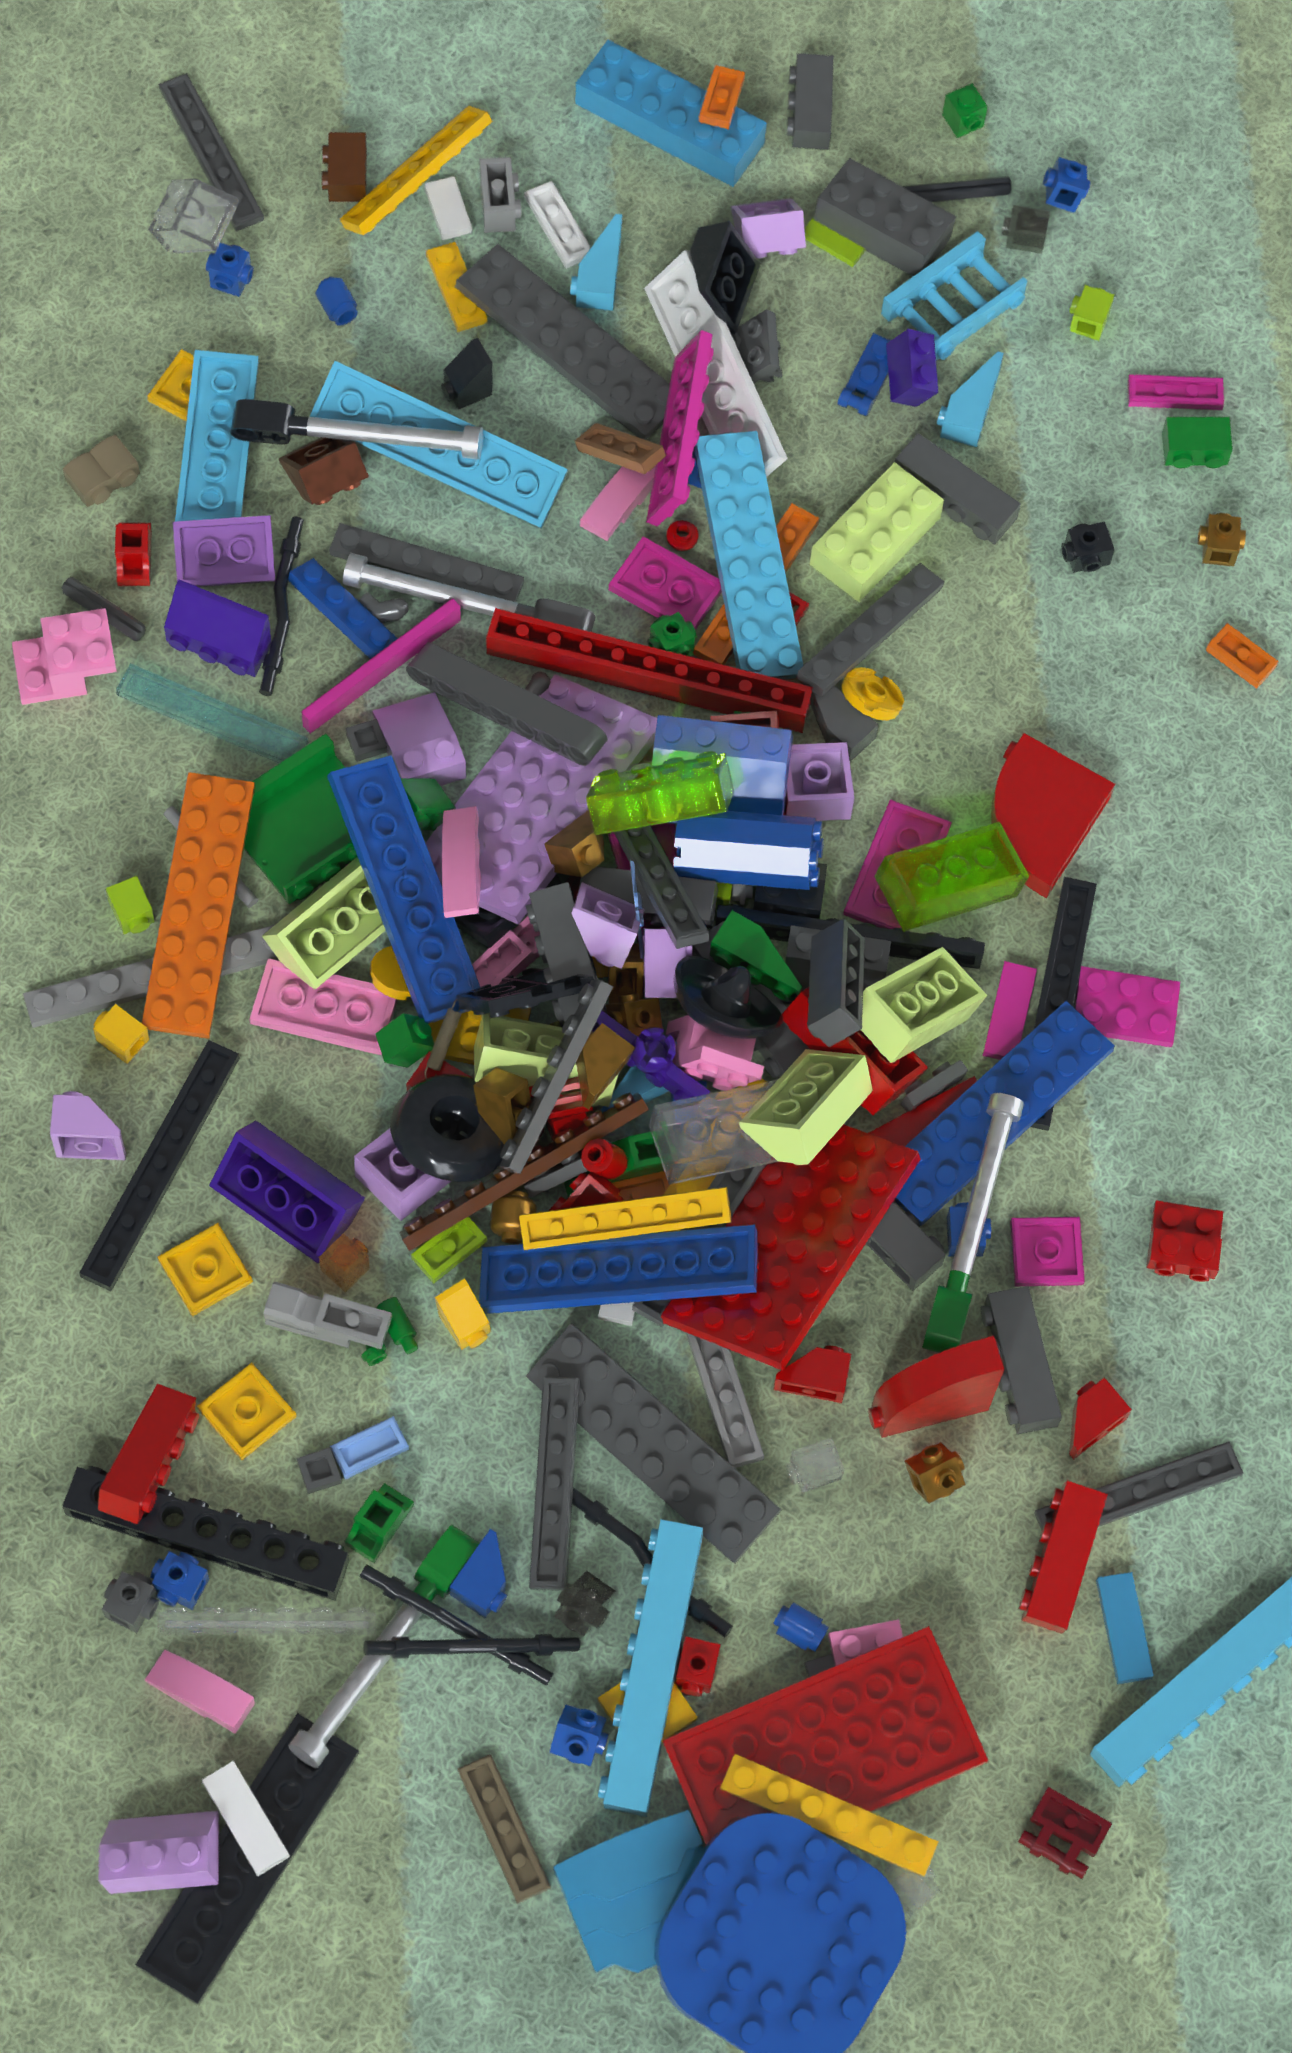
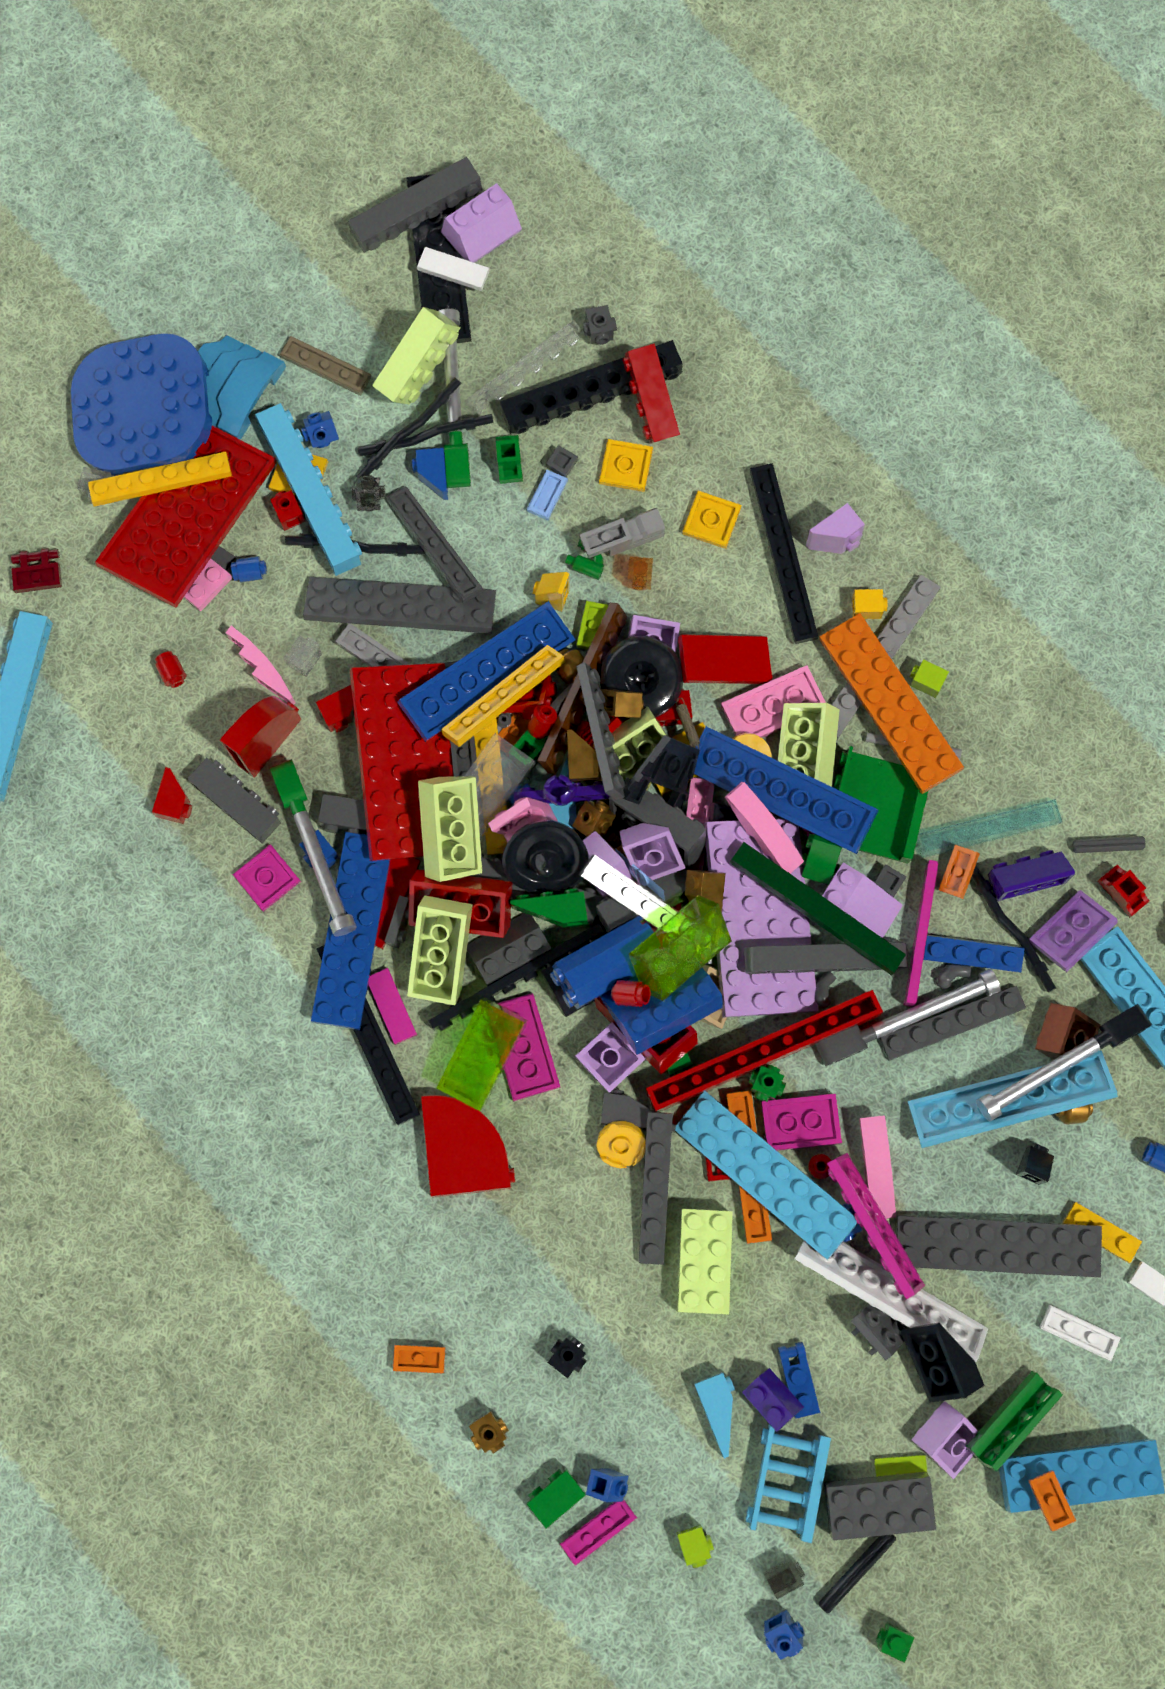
camera: 150 degrees right, 10 degrees up
(67, 653) = (1100, 790): bright pink bracket -> none
(184, 1590) = (584, 353): blue brick -> none
(201, 1690) = (528, 313): bright pink slope -> none
(222, 1940) = (415, 205): none -> dark grey brick
(285, 692) = (959, 871): none -> orange plate
(285, 1190) = (704, 590): dark purple slope -> none
(336, 1087) = (725, 659): none -> red tile
(392, 1712) = (417, 356): none -> yellowish green brick
(405, 1040) = (710, 712): green brick -> none
(474, 750) = (817, 908): none -> dark green tile
(497, 195) = (1132, 1315): light grey brick -> none
(598, 270) = (1024, 1314): medium azure slope -> none
(620, 448) = (903, 1188): medium nougat plate -> none
(670, 204) = (1011, 1419): none -> green fence
(752, 786) = (630, 993): none -> red brick
(811, 101) = (1000, 1565): dark grey brick -> none
(836, 983) = (488, 909): dark grey brick -> none
(875, 1483) = (264, 670): none -> bright pink slope
(935, 1472) = (235, 699): pearl gold brick -> none
(965, 493) = (680, 1335): dark grey brick -> none
(986, 1574) = (170, 669): none -> red brick
(1063, 1556) = (134, 707): red brick -> none
(1124, 1628) = (78, 700): dark azure tile -> none
(1129, 1005) = (326, 1063): dark pink plate -> none
(1137, 411) = (607, 1485): none -> blue brick
(1163, 1484) = (120, 779): dark grey tile -> none
(1185, 1241) = (192, 942): red plate -> none

